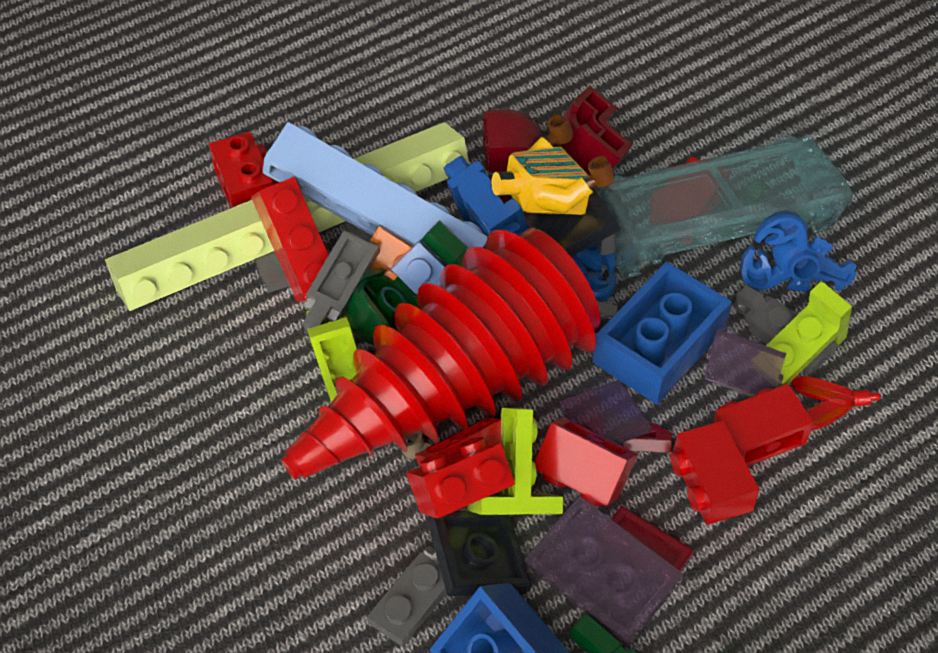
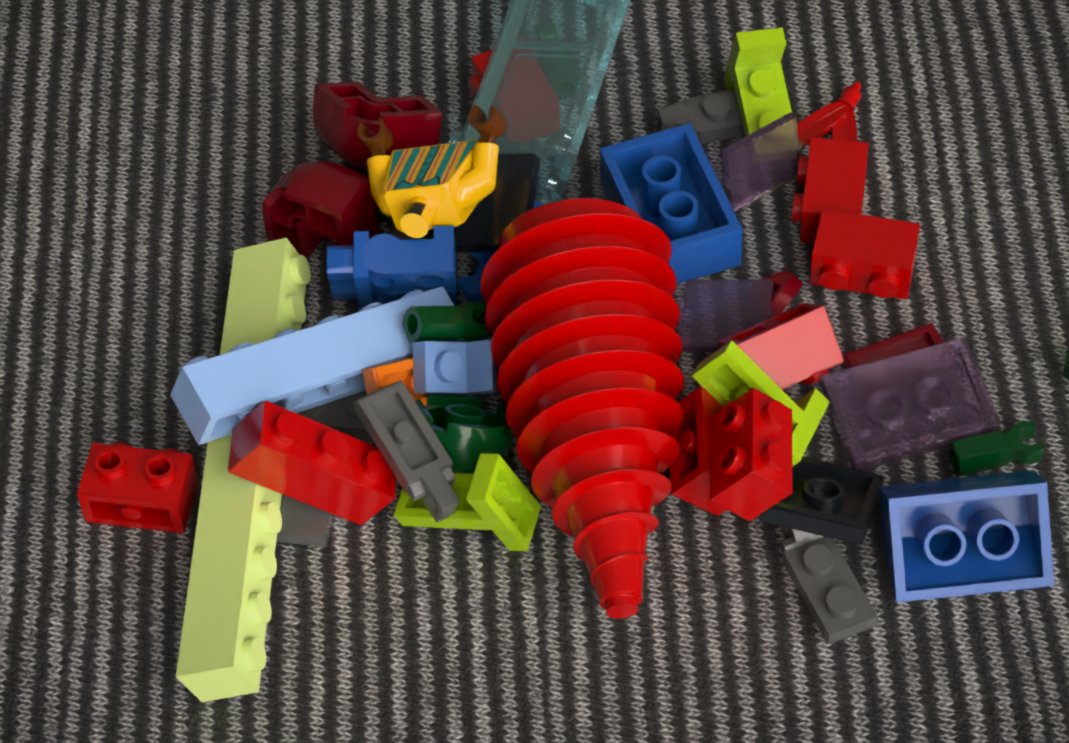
camera: 55 degrees left, 0 degrees up
(793, 257) = (662, 48): blue animal -> none

